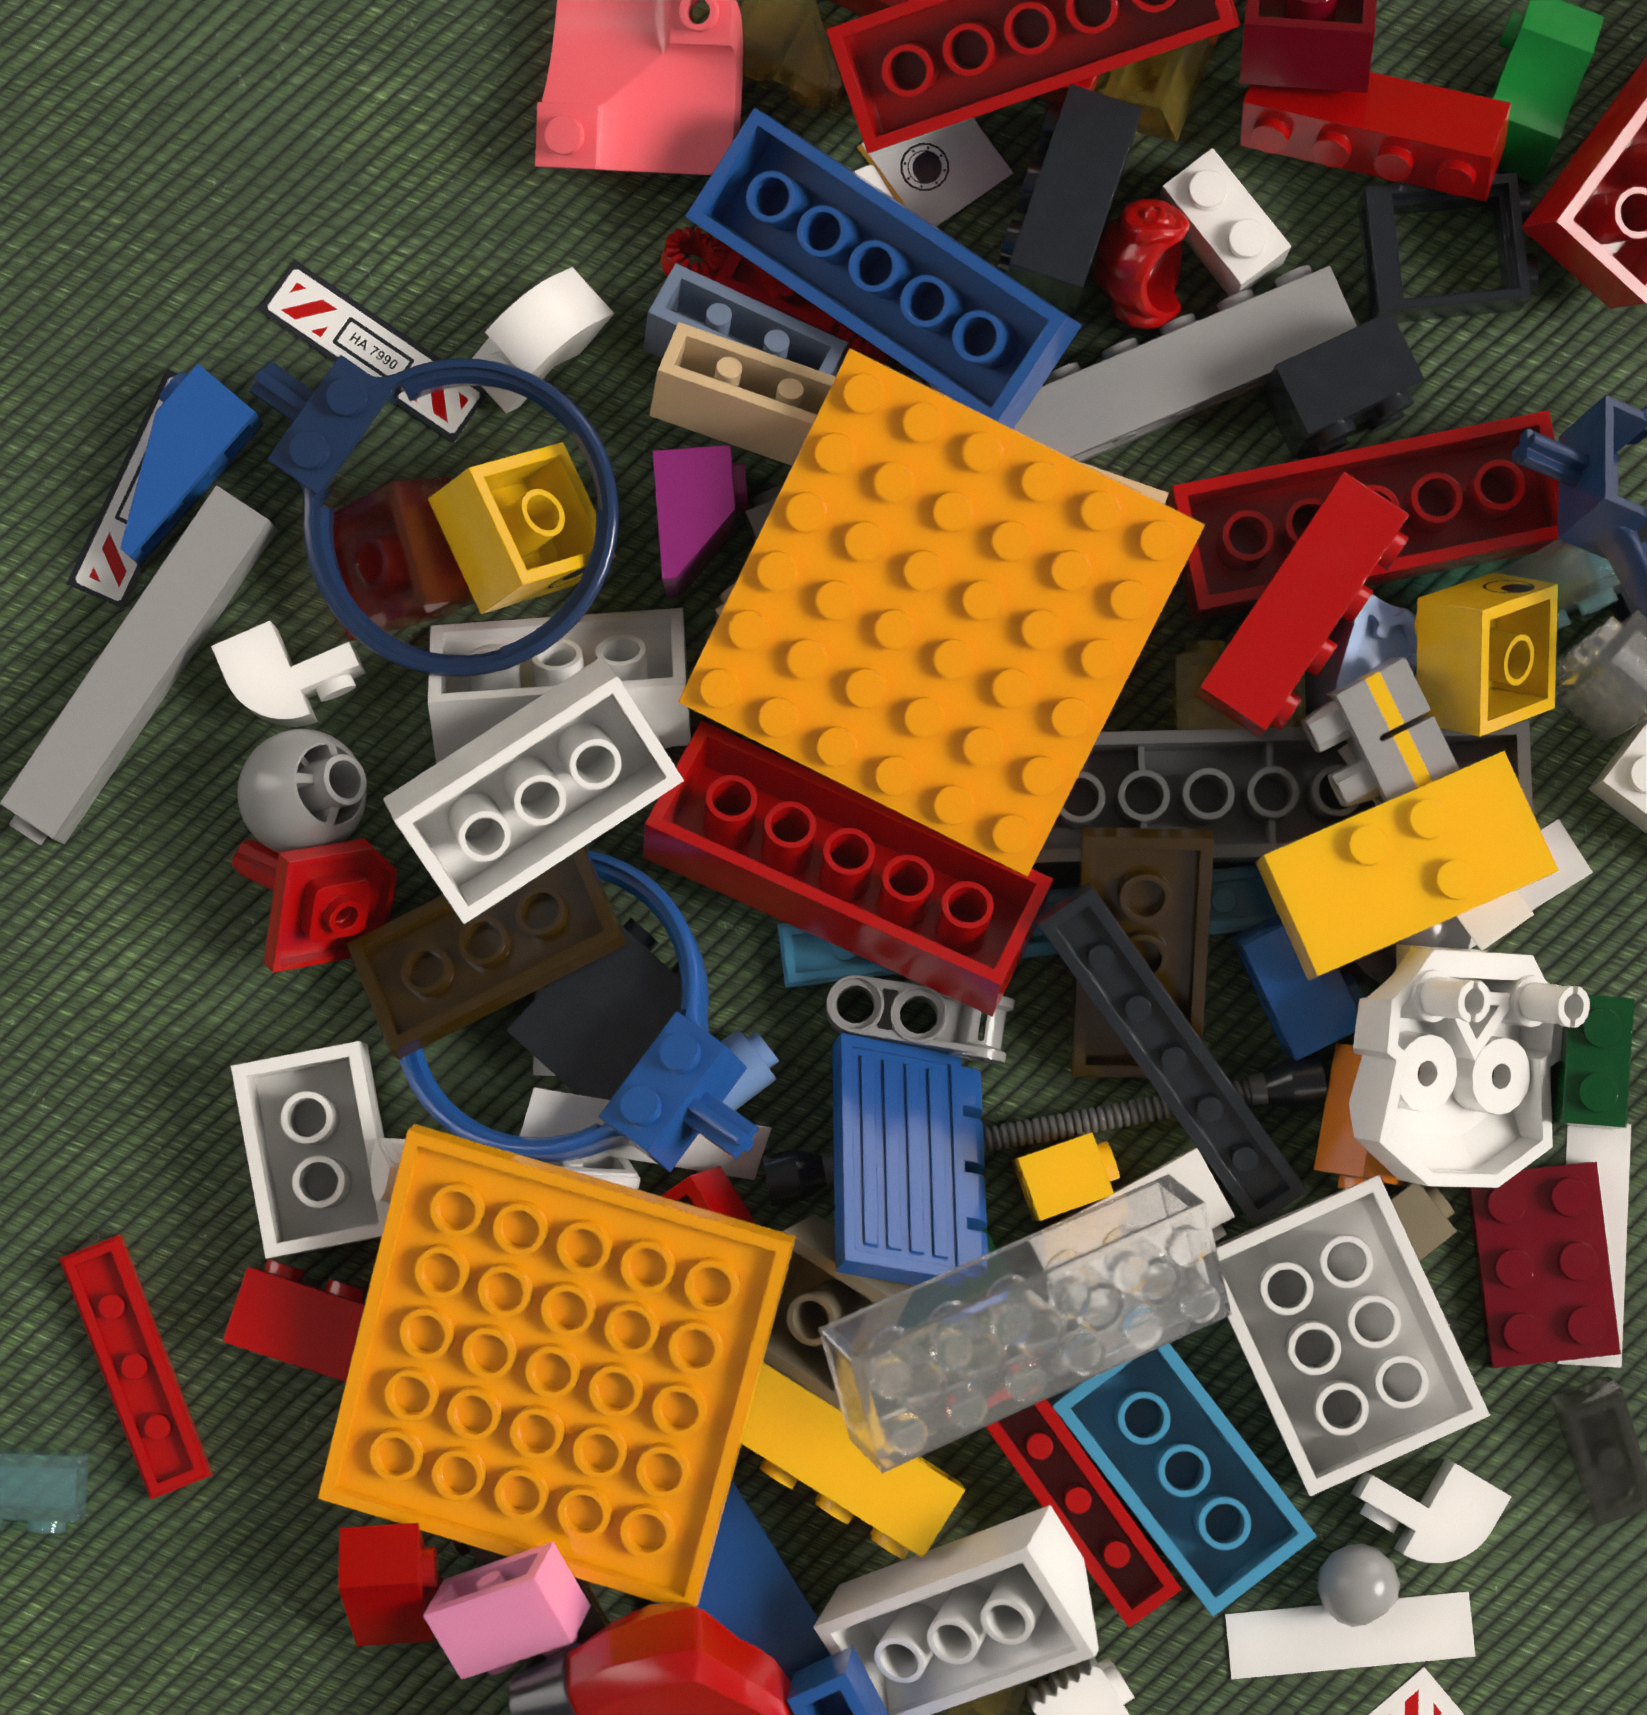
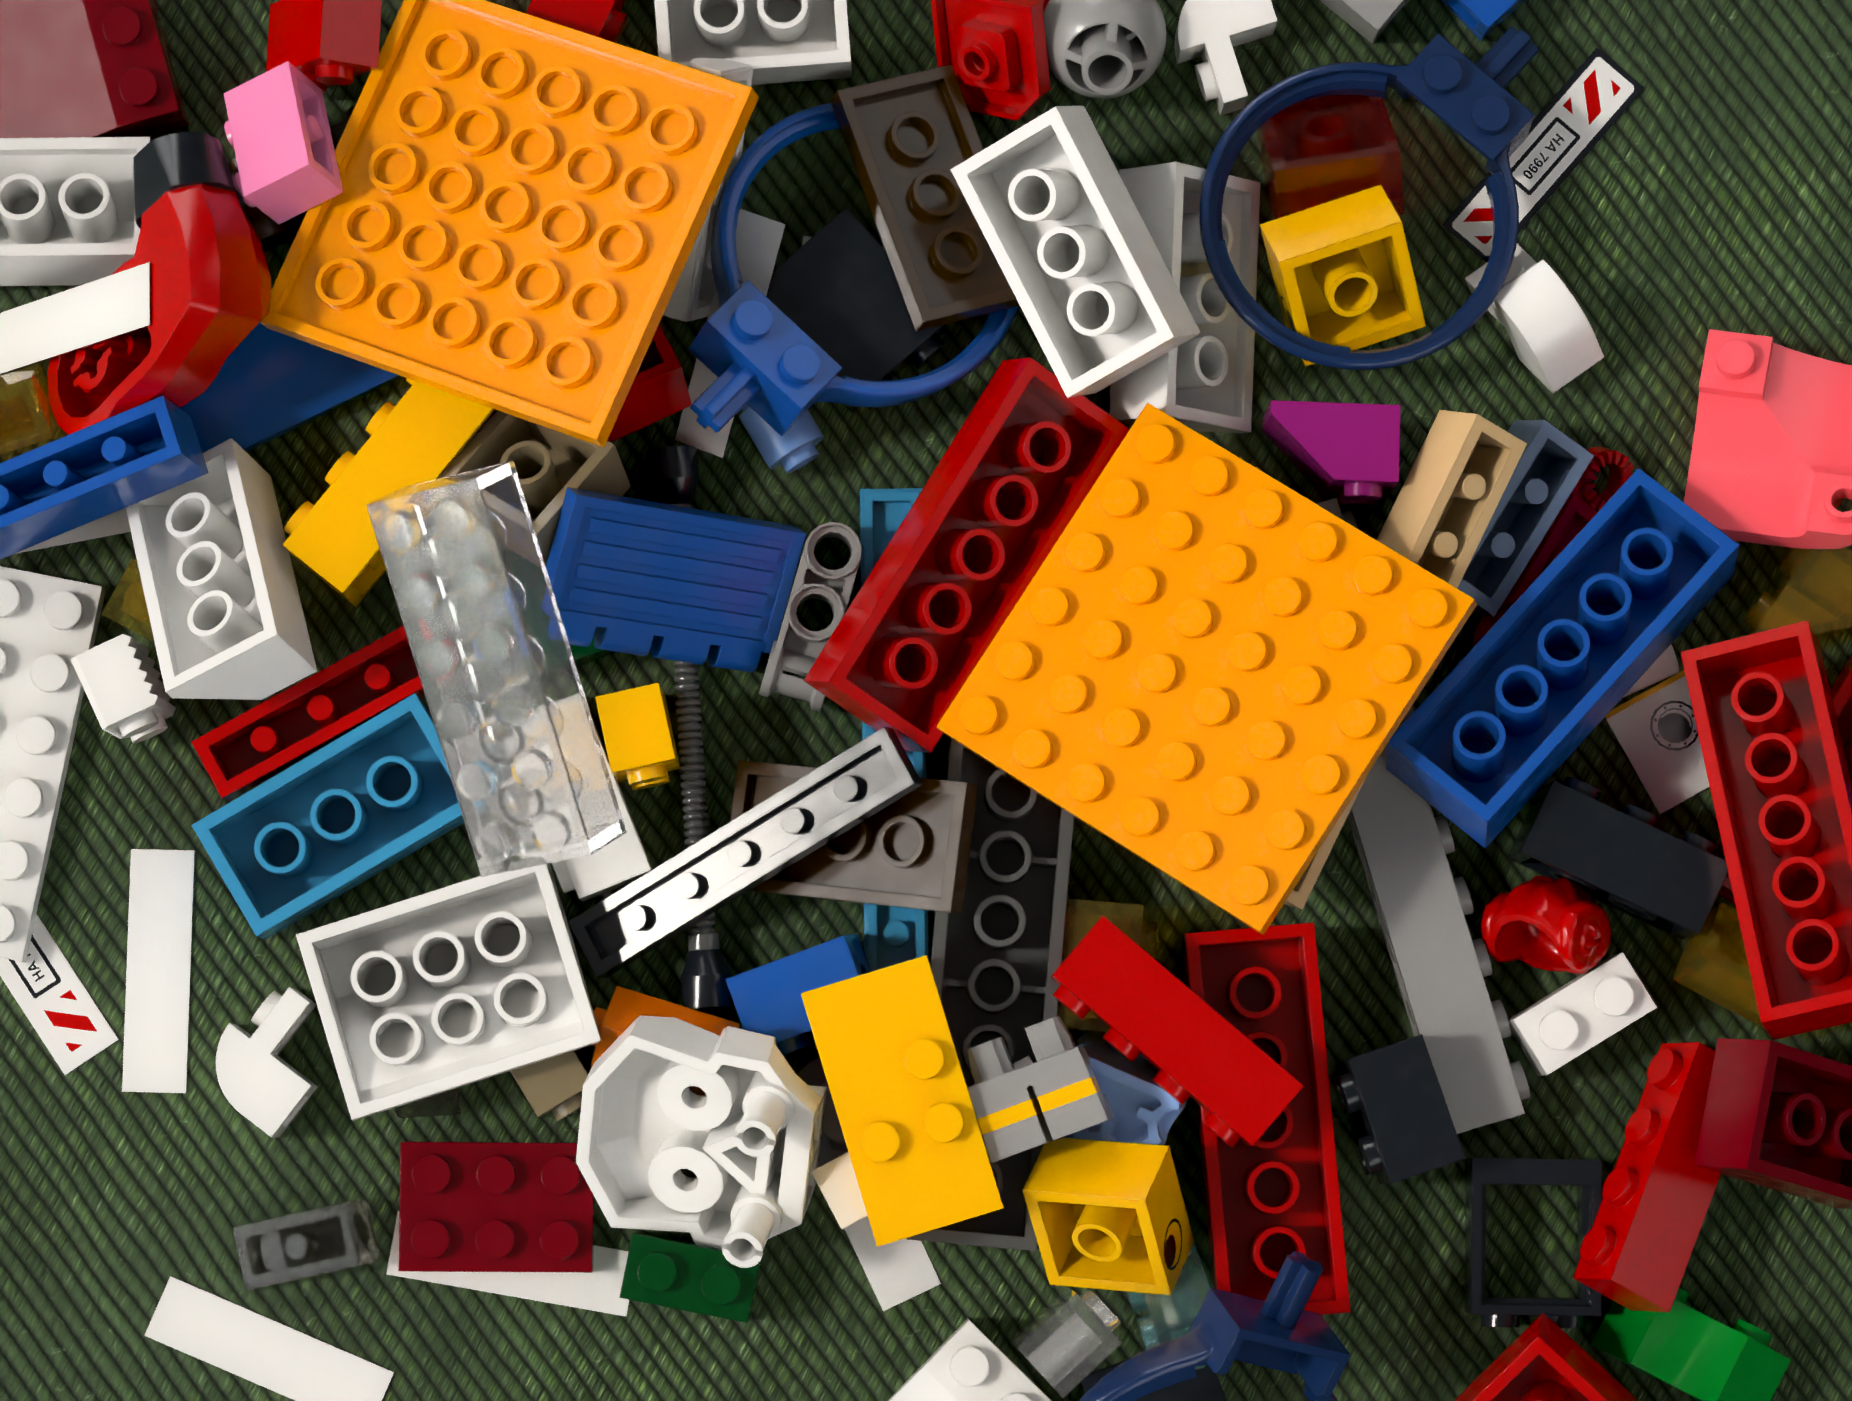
camera: 95 degrees right, 0 degrees up
(1357, 1584) = (205, 978): light grey piece -> none

